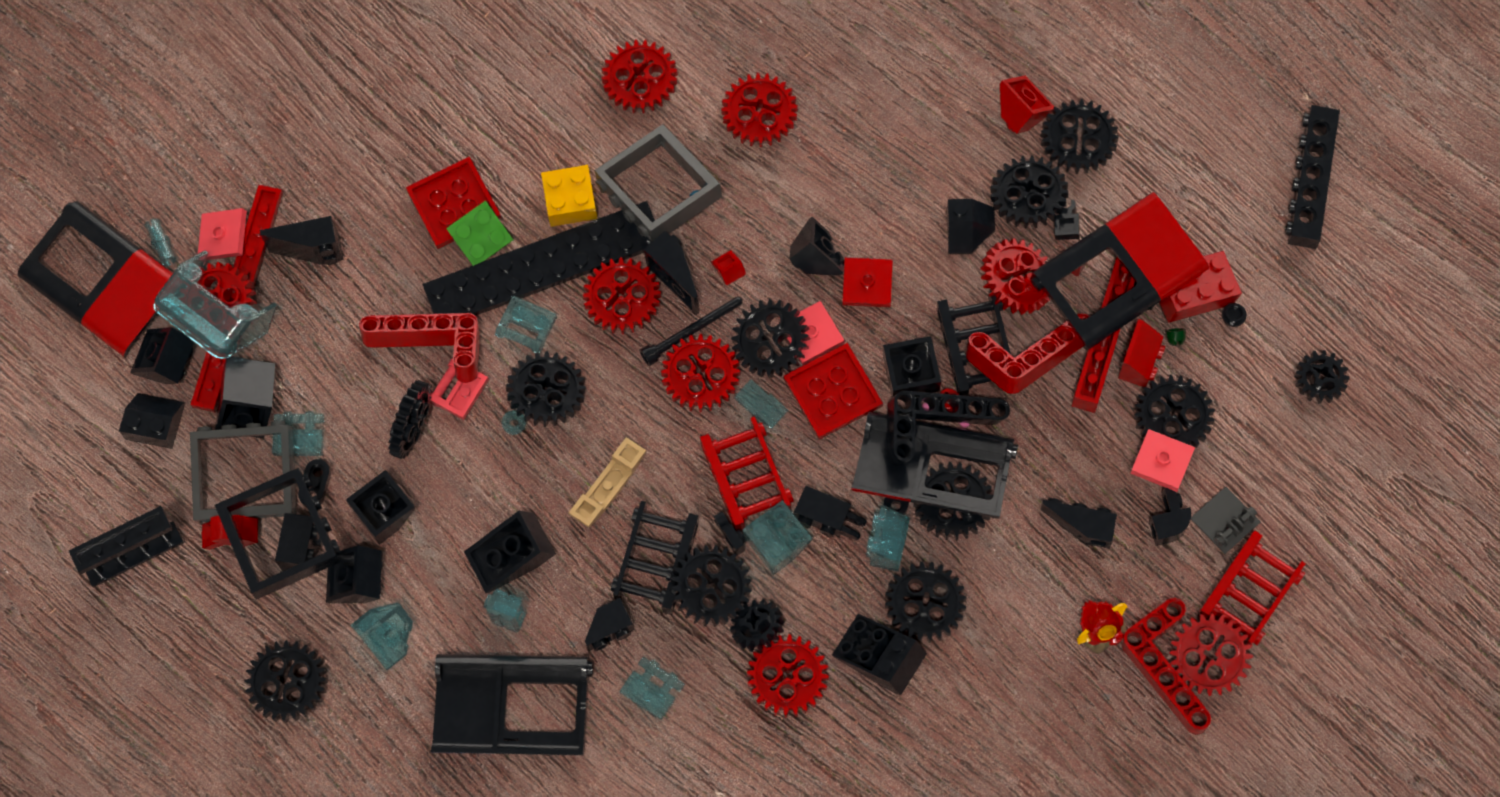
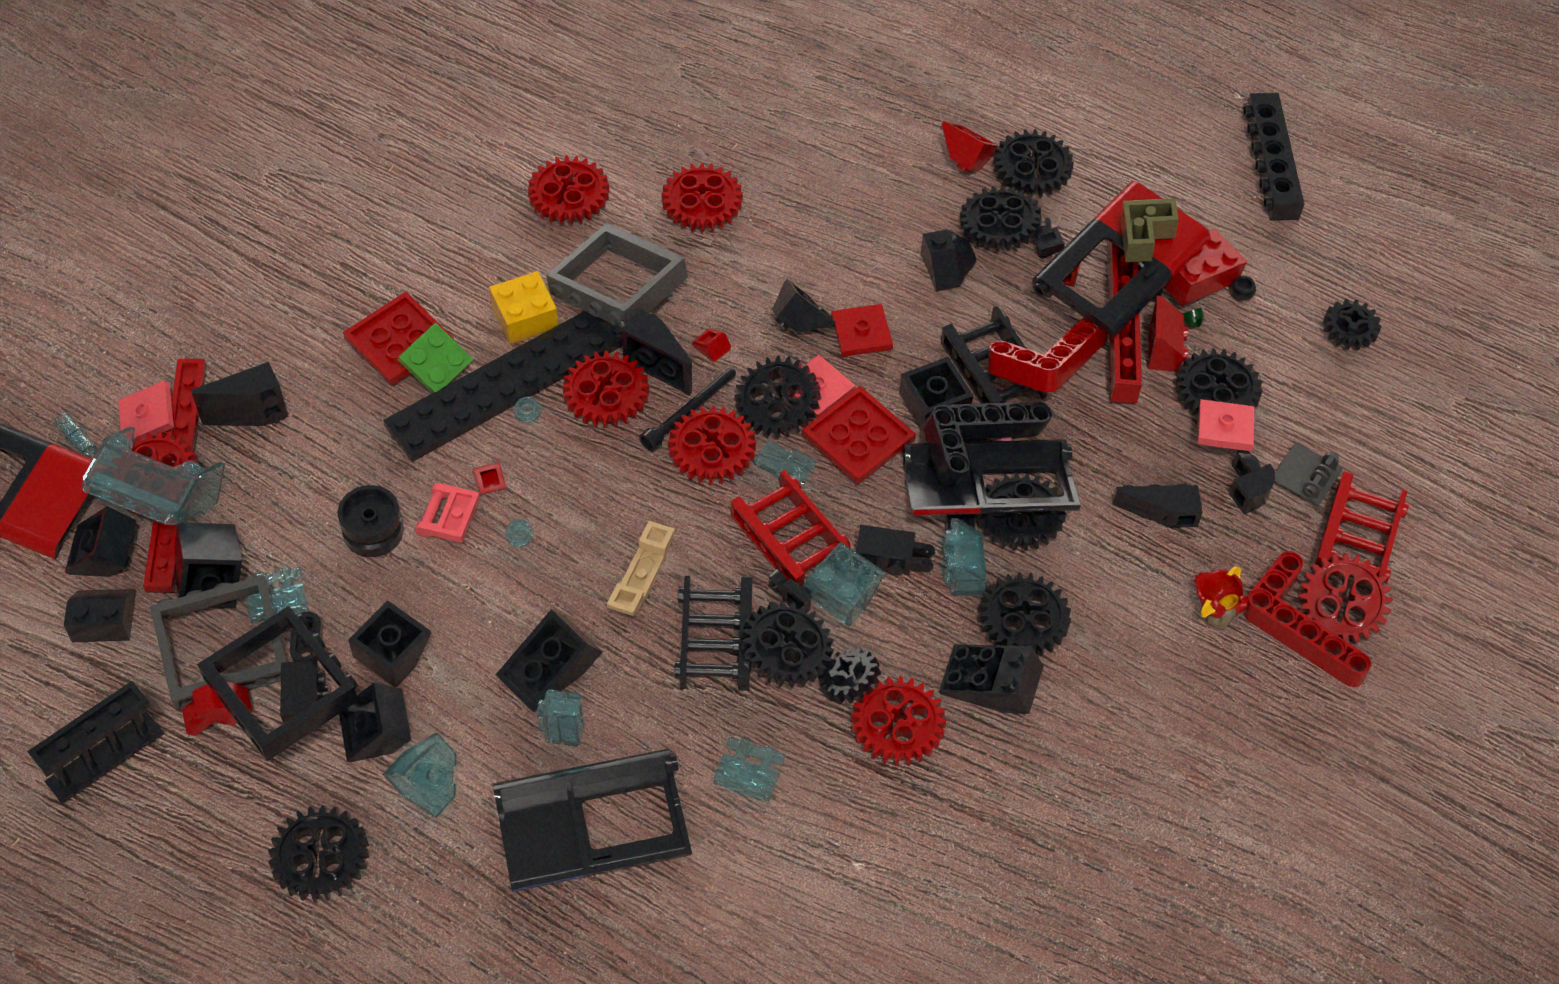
camera: 20 degrees left, 15 degrees down
(385, 383) = (370, 520): none -> black wheel
(409, 419) = (404, 543): black gear -> none
(428, 330) = (400, 461): red beam -> none
(500, 360) = (489, 478): none -> red slope
(528, 317) = (510, 429): clear light blue plate -> none
(539, 407) = (546, 492): black gear -> none
(549, 294) = (525, 404): none -> clear light blue plate
(609, 623) = (683, 710): black slope -> none
(1011, 258) = (1011, 291): red gear -> none
(1142, 246) = (1143, 223): none -> olive brick

